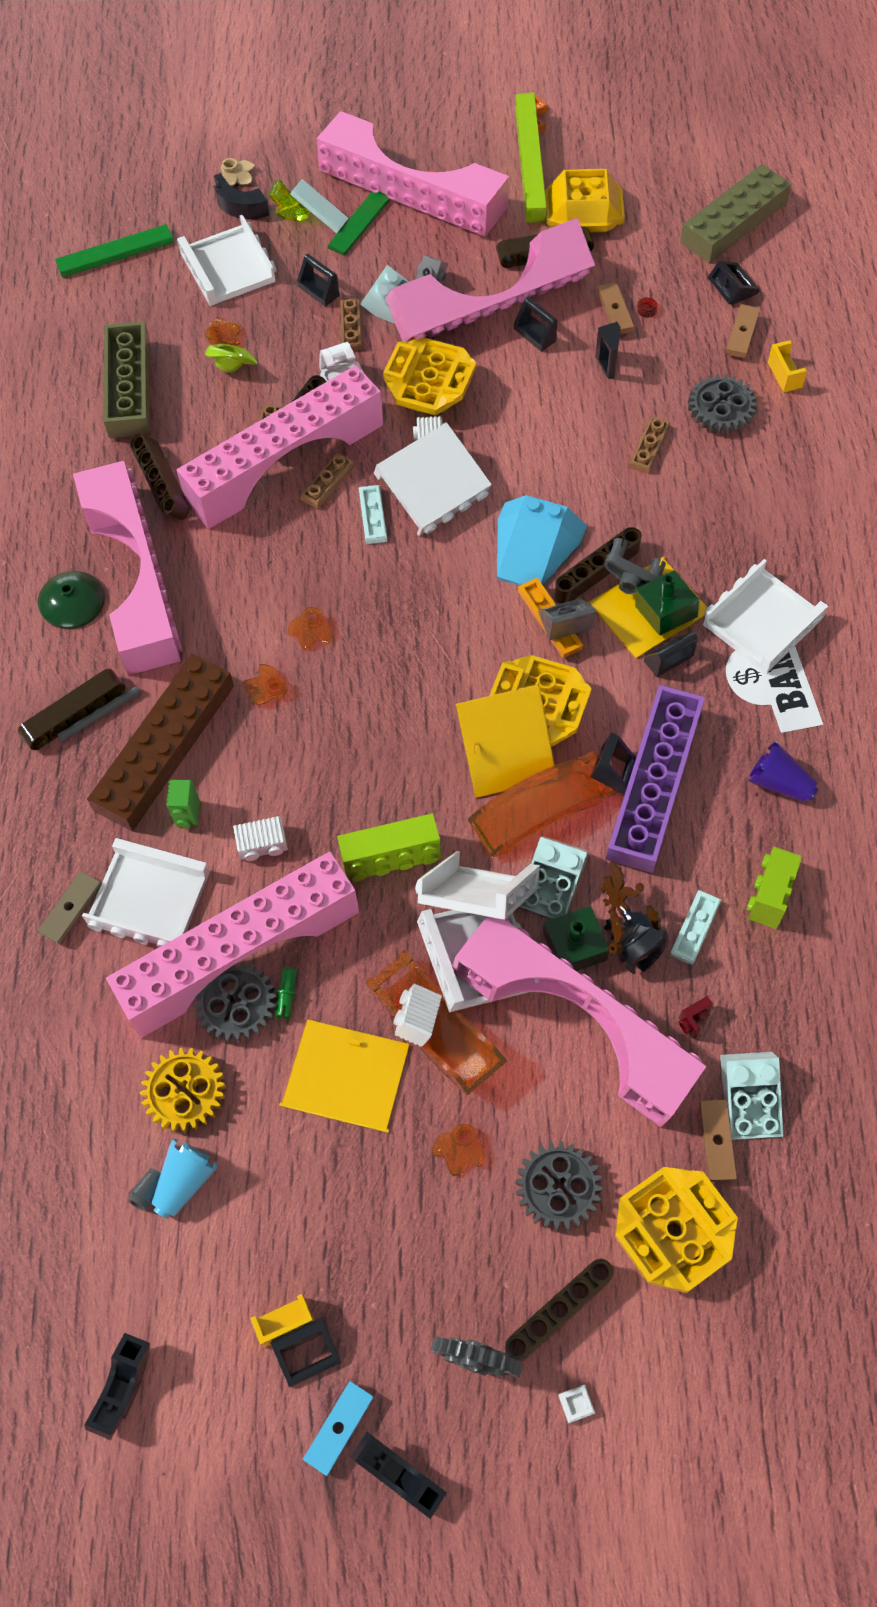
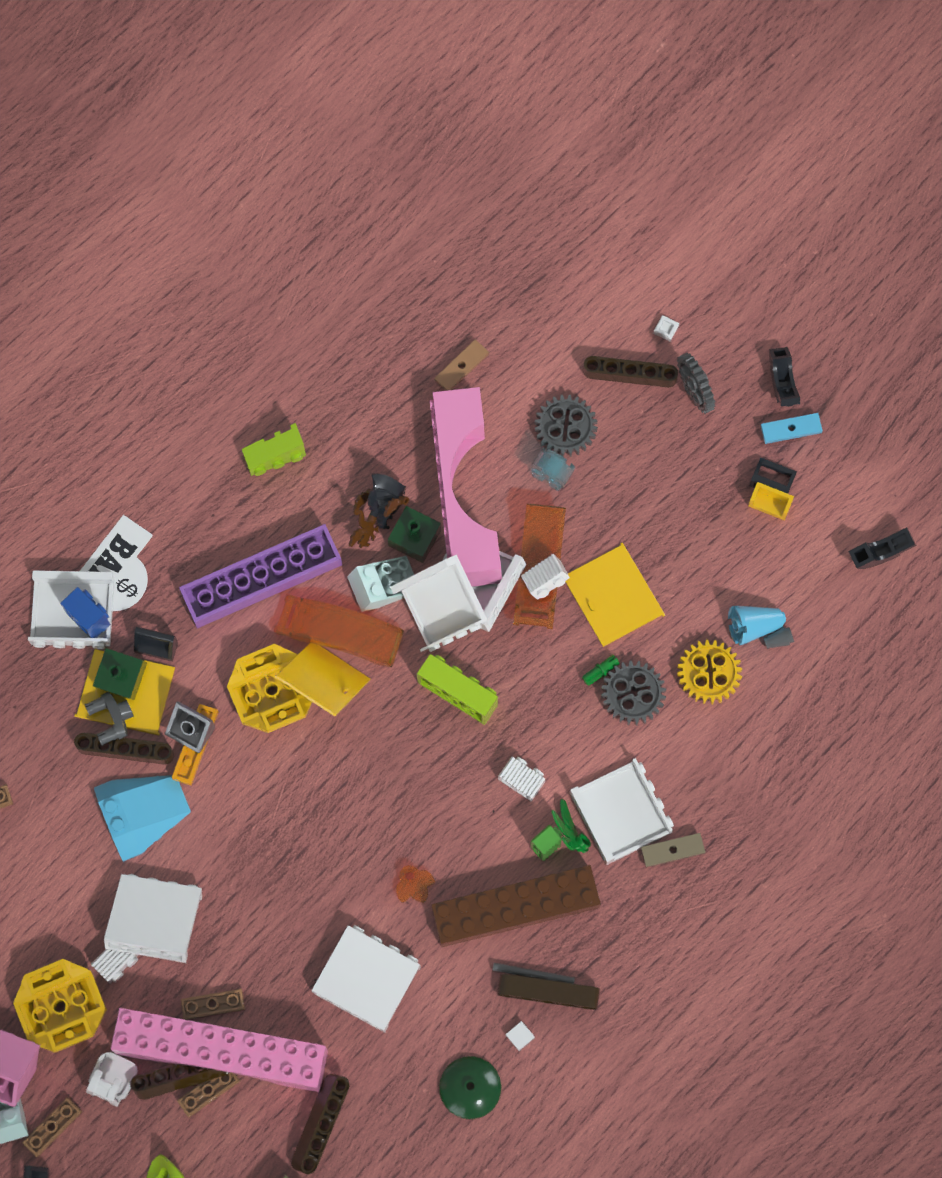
camera: 135 degrees left, 10 degrees up
(65, 663) = (520, 1036): none -> white tile
(144, 621) = (447, 999): bright pink arch -> none
(168, 832) = (572, 839): none -> green plant
(169, 978) = (554, 703): bright pink arch -> none
(229, 590) = (366, 977): none -> white panel
(310, 631) = (347, 894): clear orange plate -> none
(372, 514) = (213, 944): light aqua tile -> none
(459, 1153) = (597, 493): clear orange plate -> none
(522, 1123) = (552, 468): none -> clear light blue brick
(602, 769) = (278, 613): black tile -> none
(695, 927) = (340, 479): light aqua tile -> none
(697, 1209) = (529, 327): yellow piece -> none
(698, 1011) = (397, 435): dark red bracket -> none
(747, 609) = (83, 611): none -> blue brick
(752, 1094) = (416, 369): light aqua slope -> none
(783, 774) = (190, 508): dark purple cone -> none

